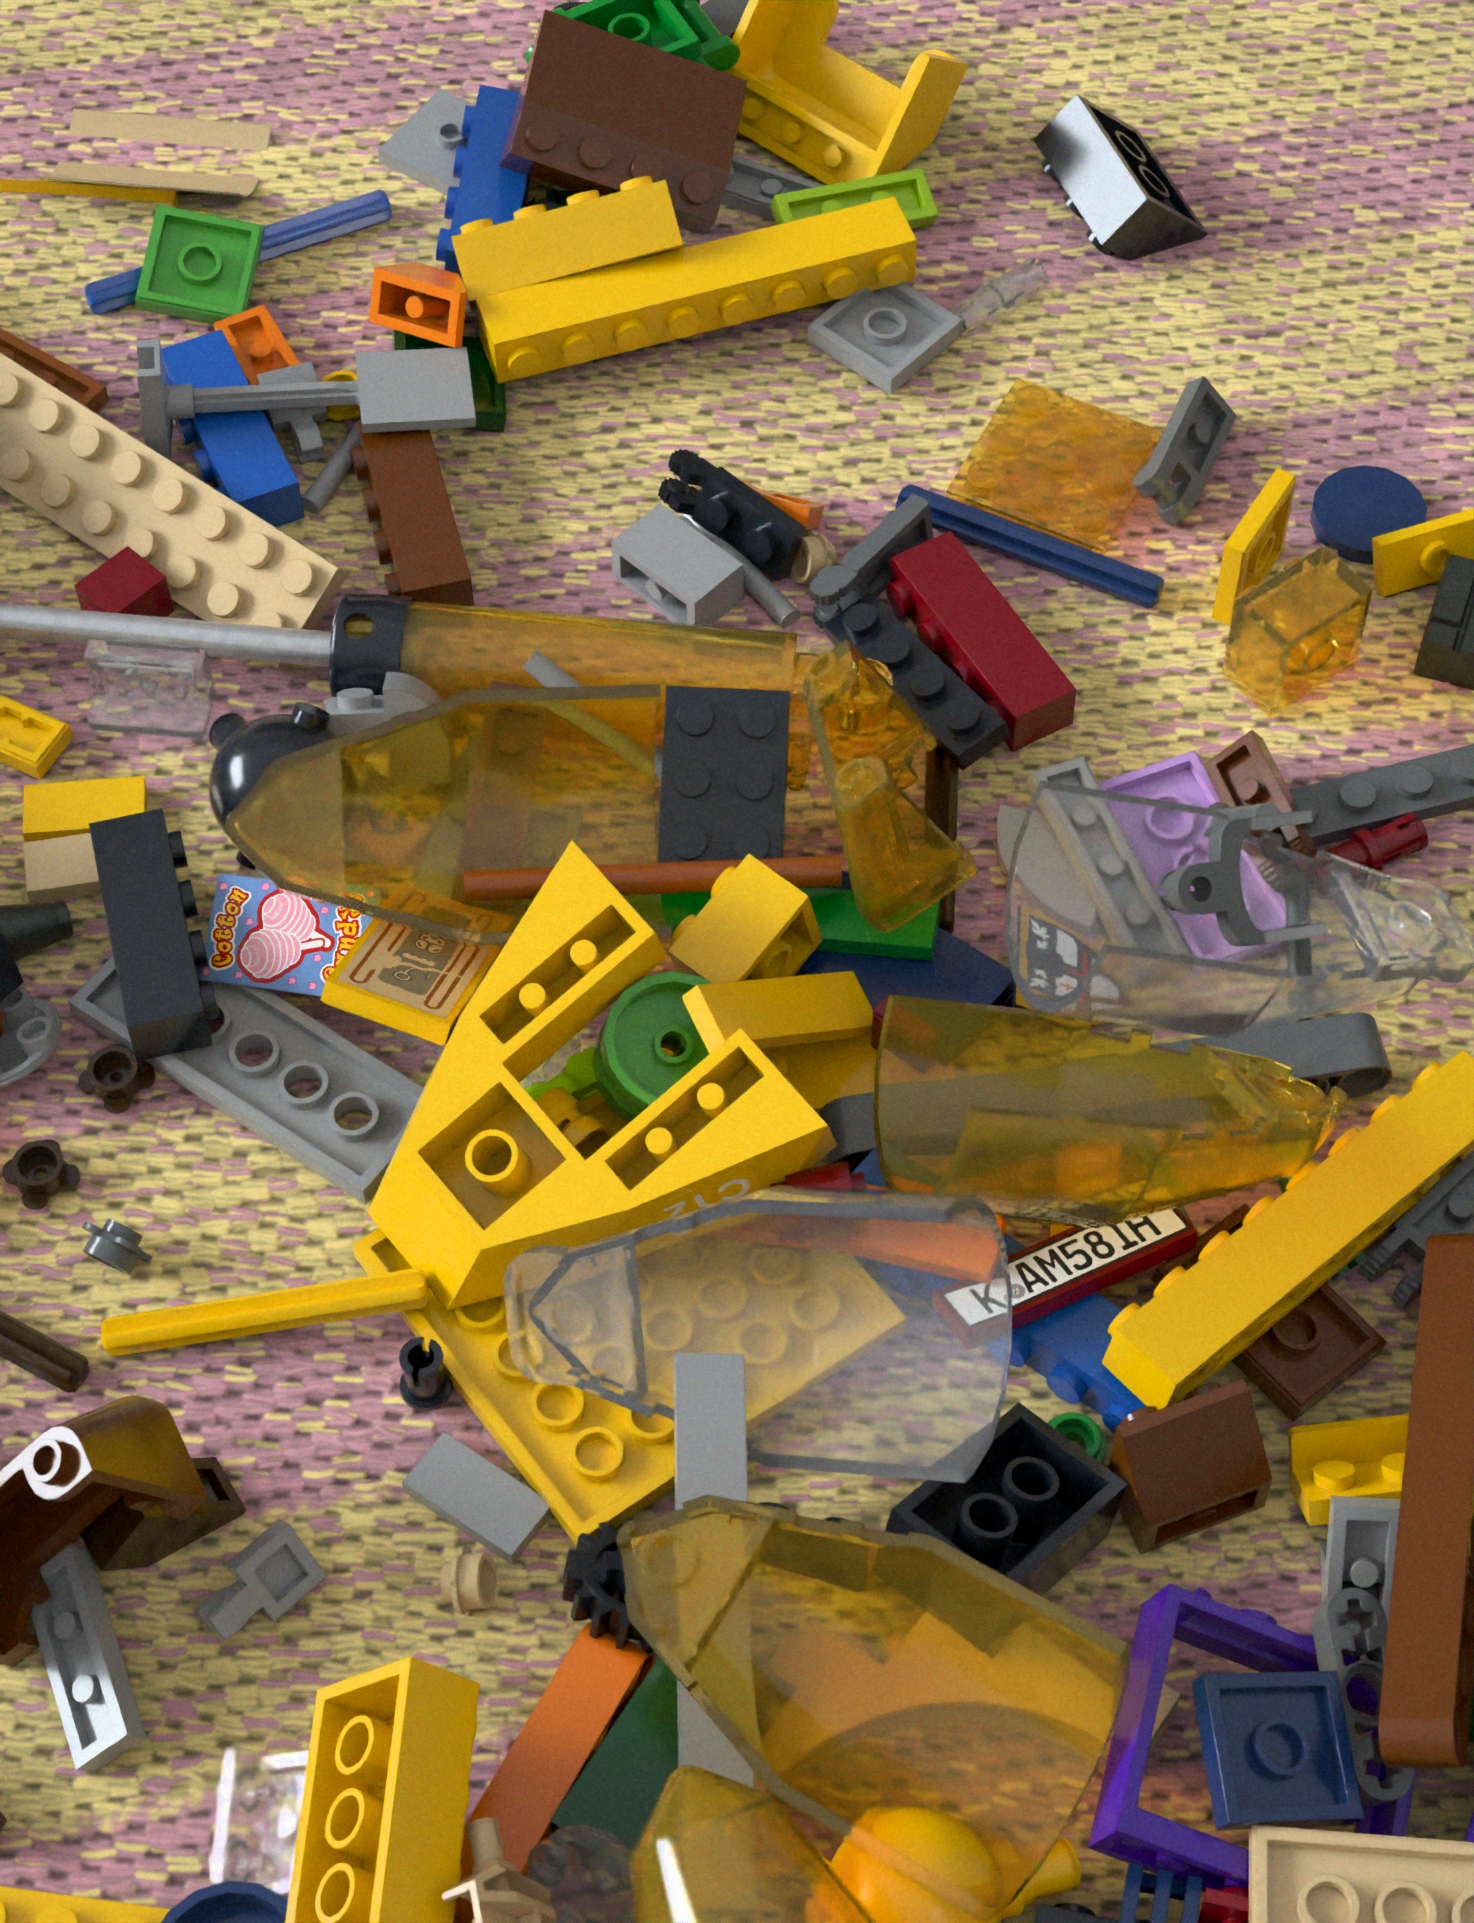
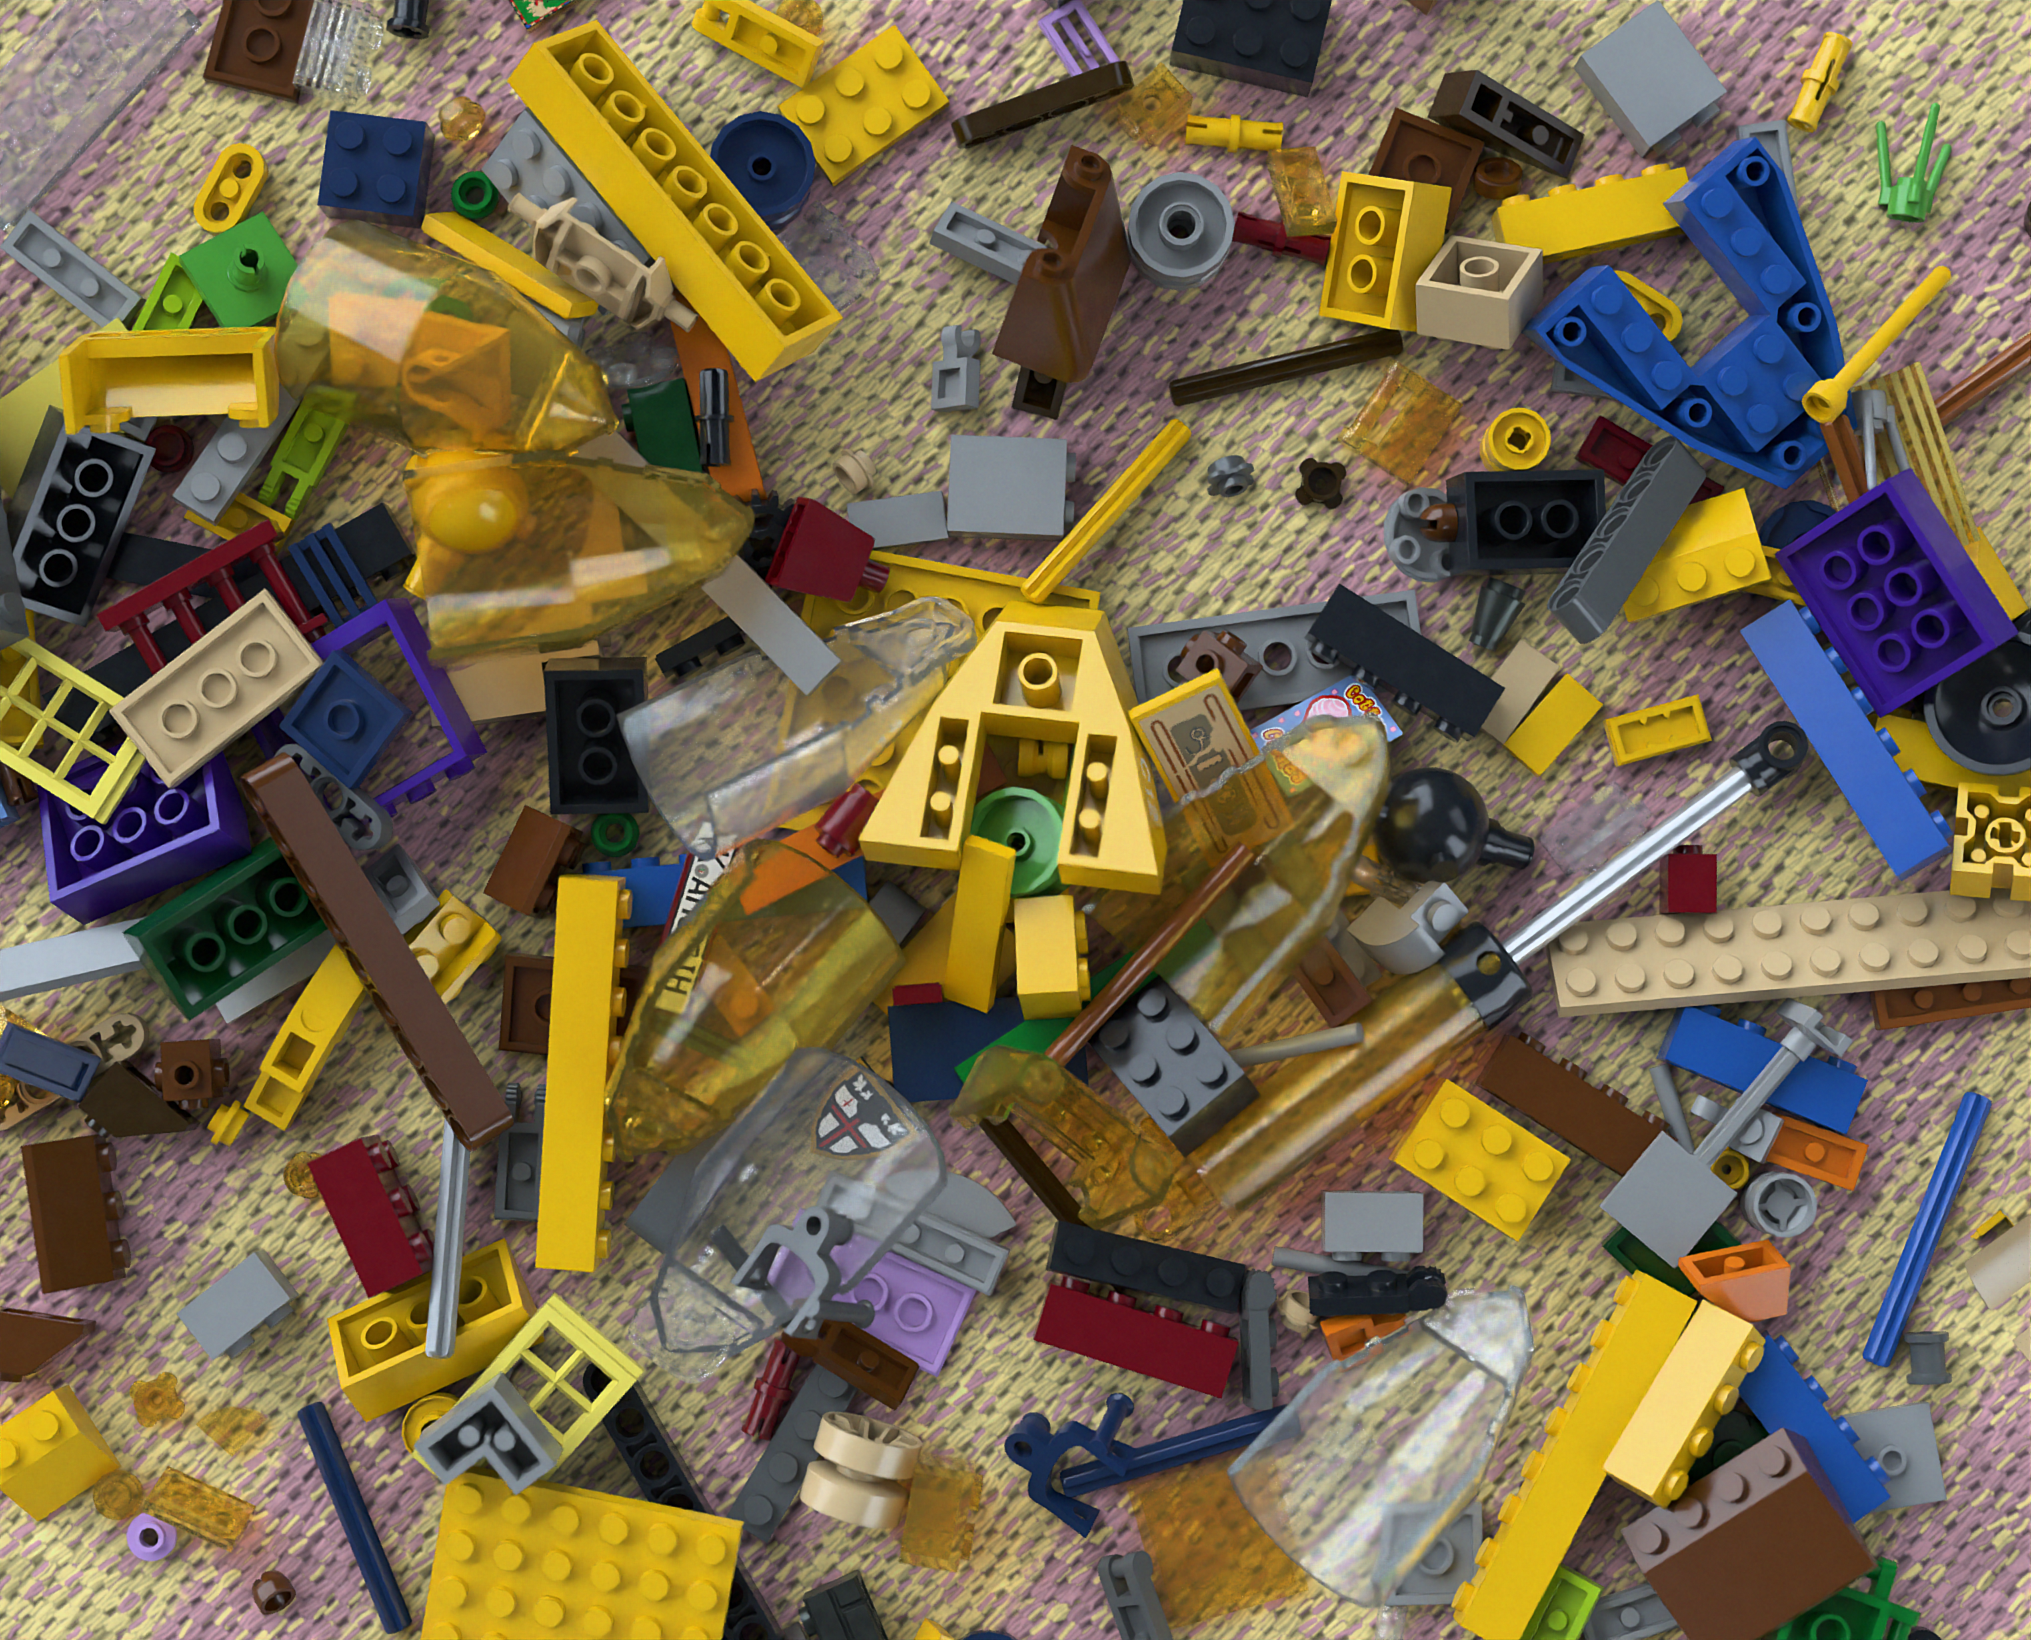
camera: 135 degrees right, 30 degrees up
(104, 1066) = (1351, 564): dark brown plate -> none
(199, 265) = (1928, 1182): bright green tile -> none
(318, 1060) = (1221, 651): none -> reddish brown brick
(330, 327) = (1778, 1203): none -> light grey wheel
(334, 1420) = (1009, 488): none -> light grey brick
(343, 172) = (1927, 1357): none -> dark grey bush
(423, 1378) = (991, 543): black pin -> none
(536, 534) = (1479, 1159): none -> yellow brick
(559, 1735) = (714, 418): none -> black axle
(588, 1485) = (825, 555): none -> dark red torso
(834, 368) = (1389, 1444): none -> clear windscreen
(1155, 614) = (1038, 1450): none -> dark blue piece
(1255, 543) = (1019, 1560): yellow tile -> none
(1340, 708) = (860, 1470): none -> tan wheel

